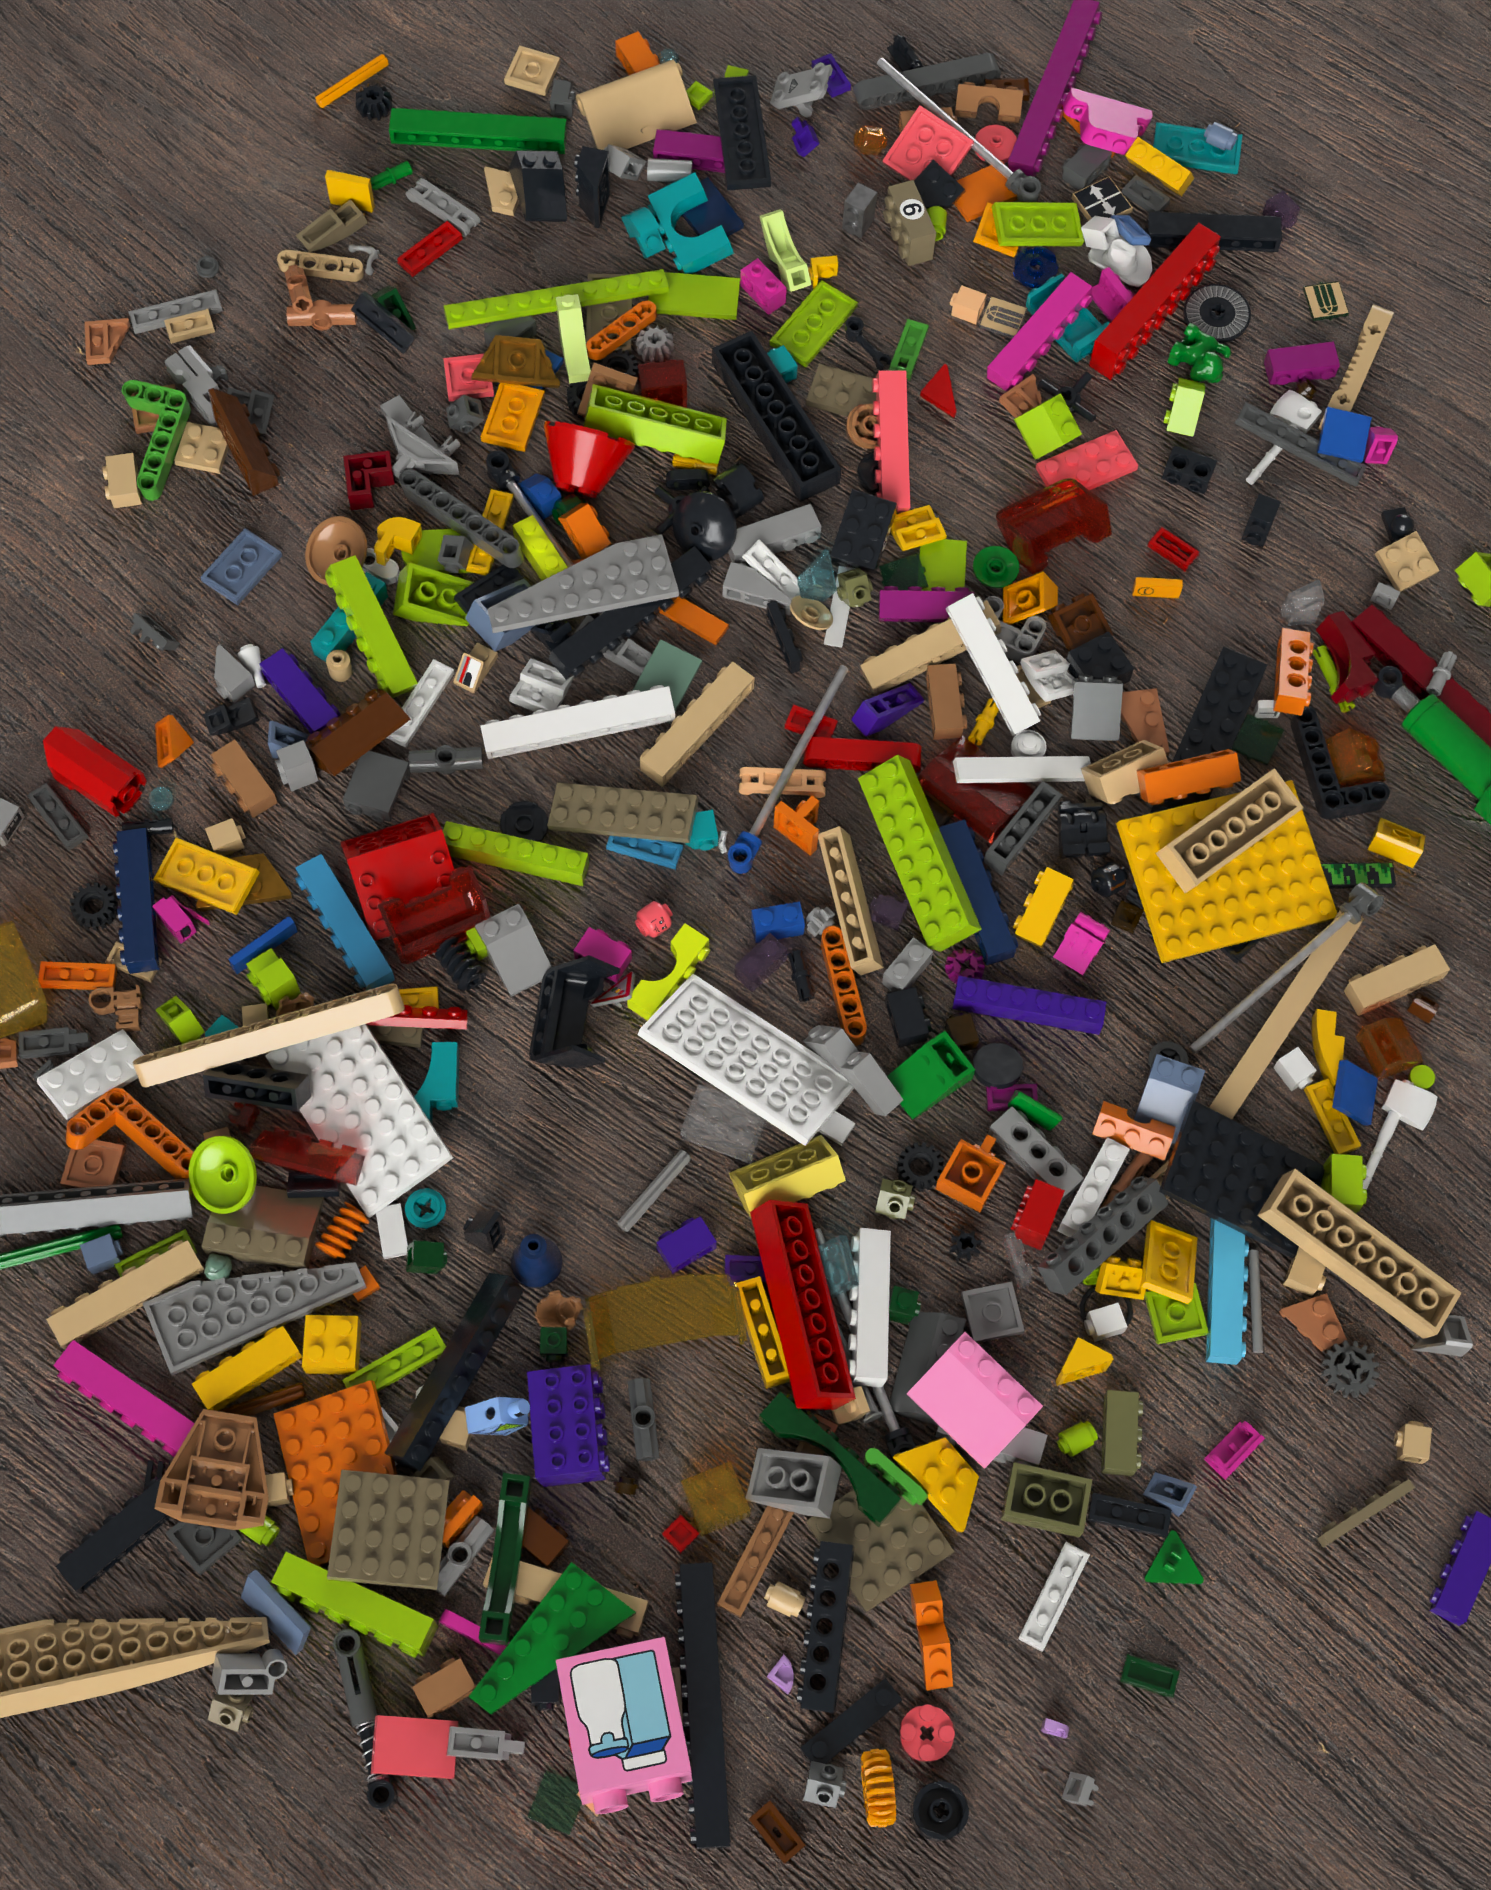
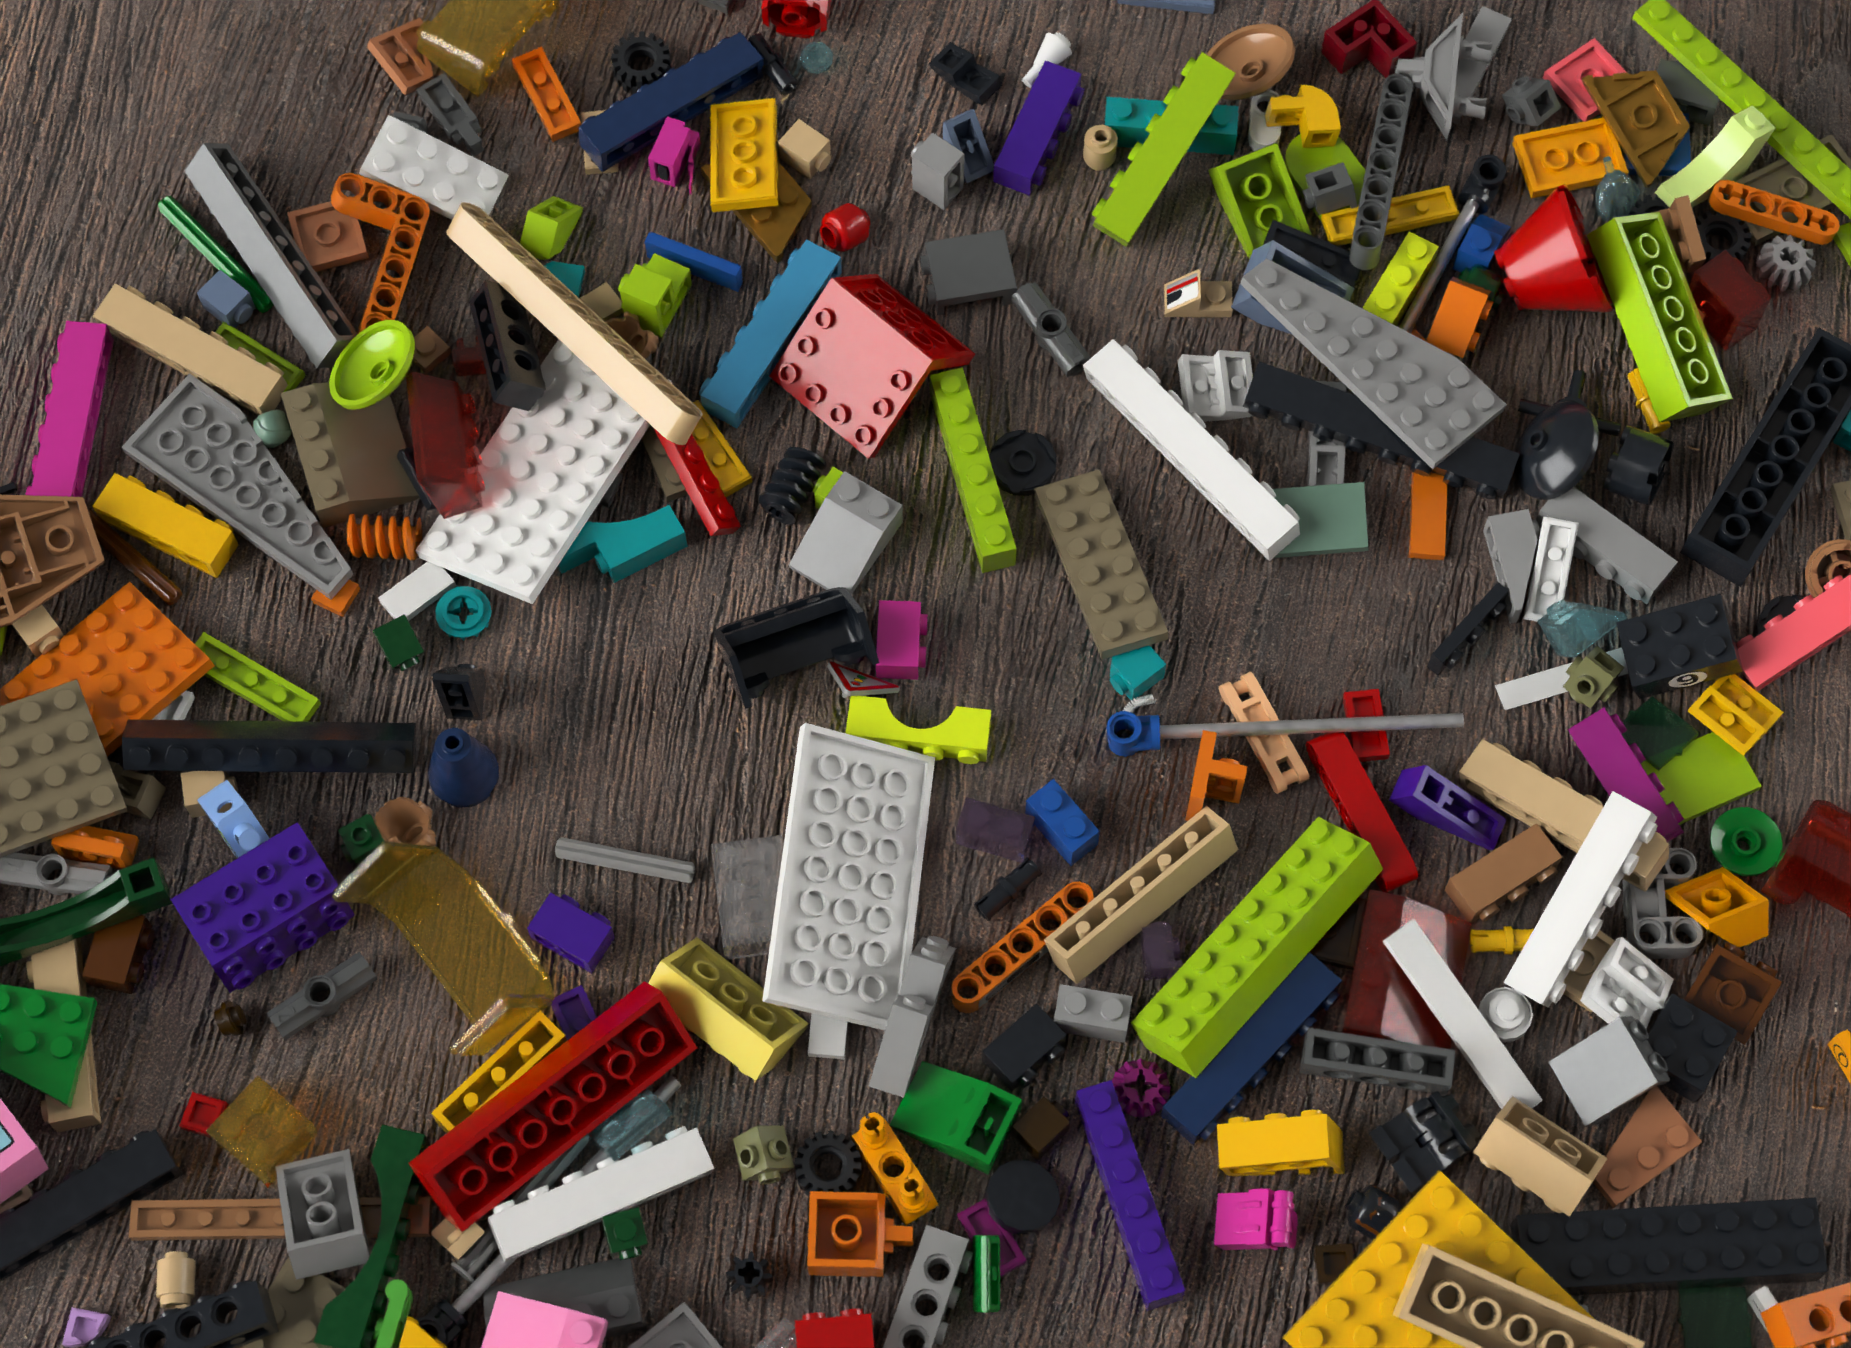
camera: 65 degrees right, 0 degrees up
(124, 1001) = (538, 156): medium nougat piece -> none
(170, 740) = (898, 29): orange slope -> none
(231, 676) = (1015, 42): light grey slope -> none
(242, 779) = (891, 127): medium nougat brick -> none
(297, 842) = (845, 227): none -> red head
(331, 1344) = (240, 598): yellow brick -> none
(355, 731) = (1020, 208): reddish brown slope -> none
(422, 700) = (1111, 263): white tile -> none
(429, 920) = (820, 417): clear red windscreen -> none
(552, 633) = (1296, 358): black slope -> none
(553, 405) = (1615, 193): none -> clear light blue piece
(653, 919) = (979, 673): coral head -> none
(654, 851) = (1075, 633): dark azure tile -> none
(687, 479) = (1618, 400): black beam -> none
(696, 724) = (1280, 588): tan brick -> none
(811, 613) = (1523, 644): tan dish -> none
(819, 920) = (1095, 872): light grey gear -> none
(961, 1126) = (881, 1149): none -> light orange piece
(1189, 776) = (1574, 1238): orange brick -> none

